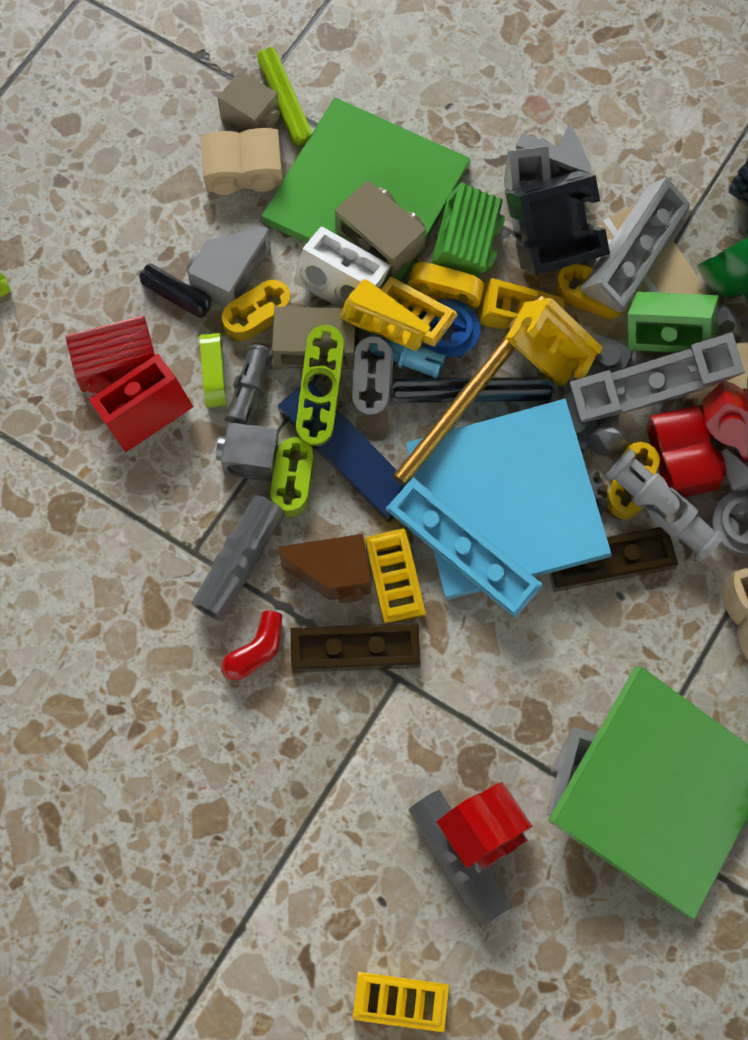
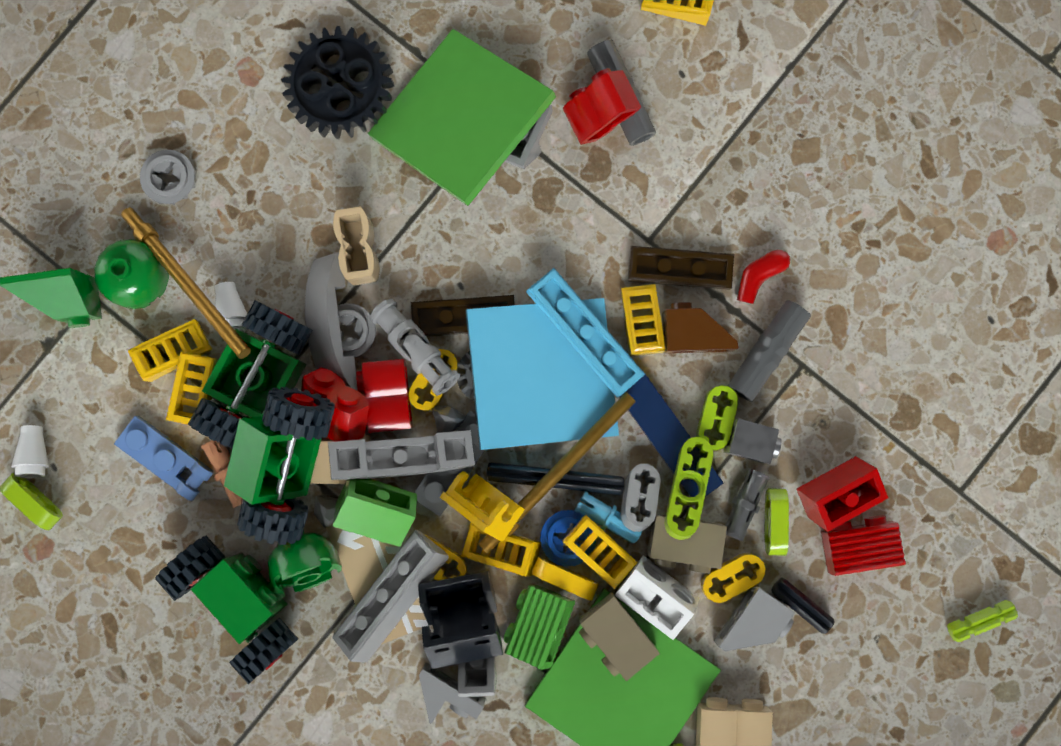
camera: 170 degrees left, 15 degrees up
(382, 315) = (633, 545): yellow slope -> none

